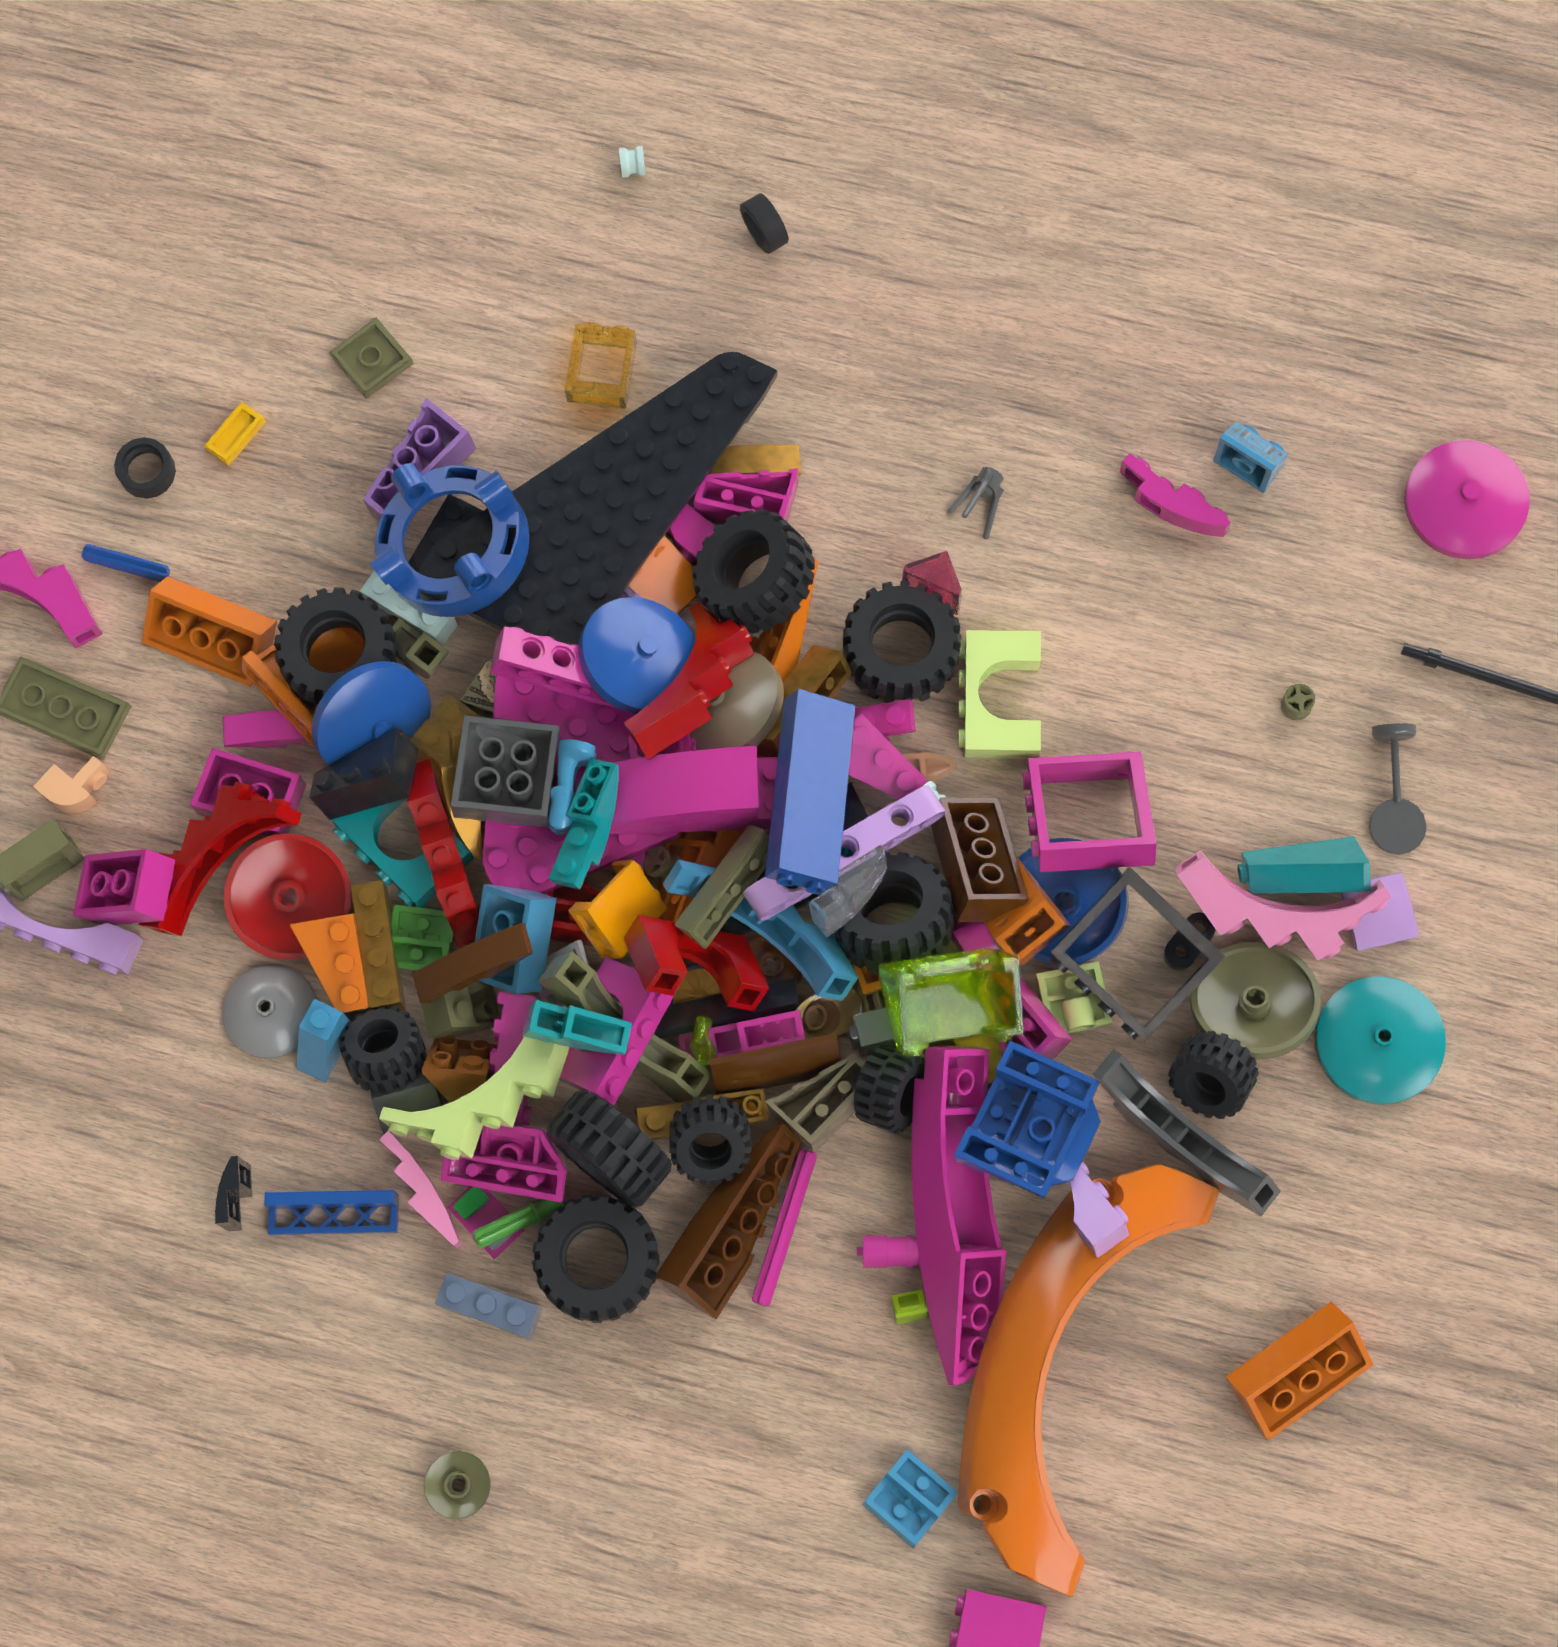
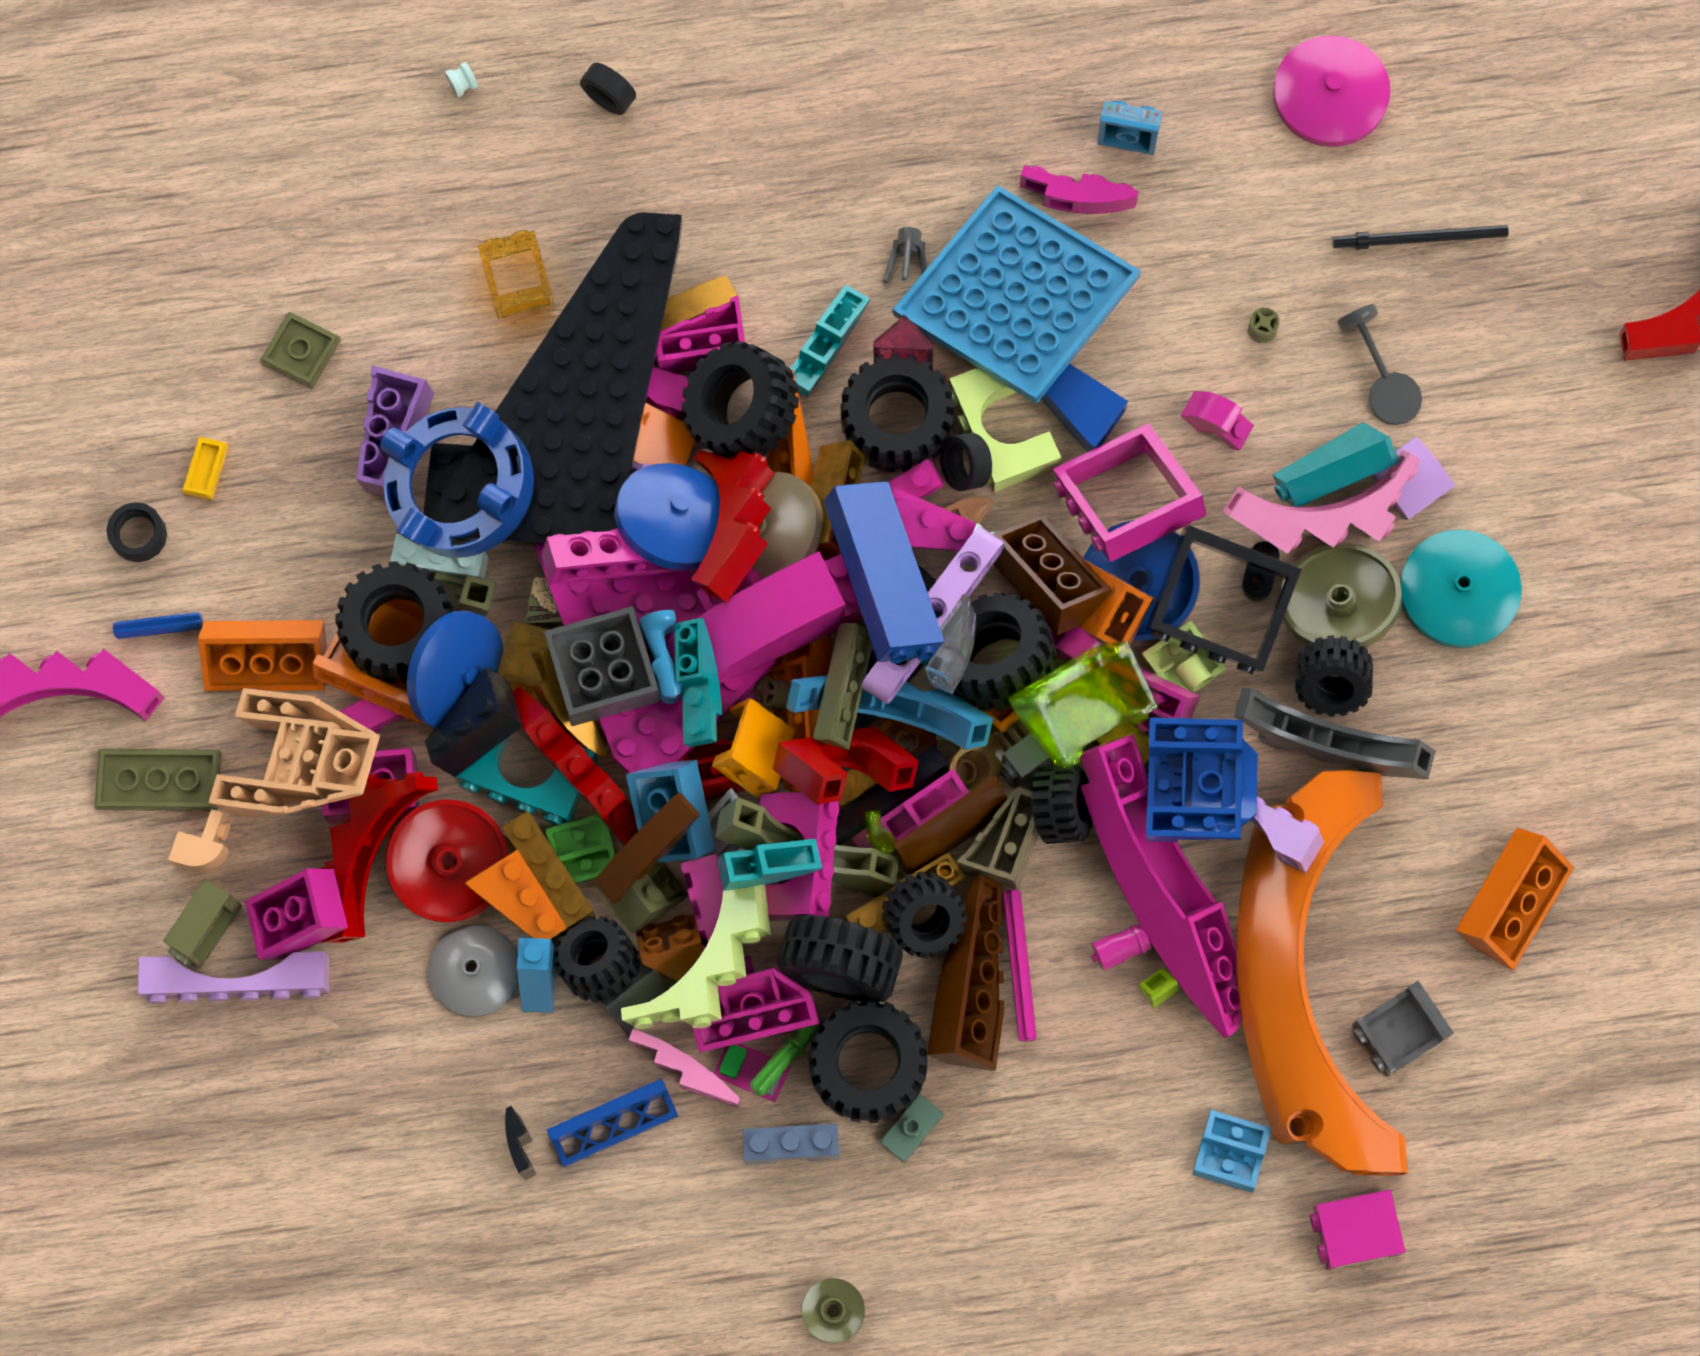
camera: 25 degrees left, 0 degrees up
(199, 750) = (314, 760): none -> light nougat wedge
(612, 1341) = (912, 1128): none -> sand green plate
(868, 545) = (828, 338): none -> teal slope
(954, 729) = (979, 460): none -> black tyre
(1068, 574) = (1017, 293): none -> dark azure plate
(1081, 699) = (1084, 407): none -> blue slope
(1129, 1451) = (1401, 1029): none -> flat silver panel
(1213, 773) = (1217, 415): none -> dark pink brick

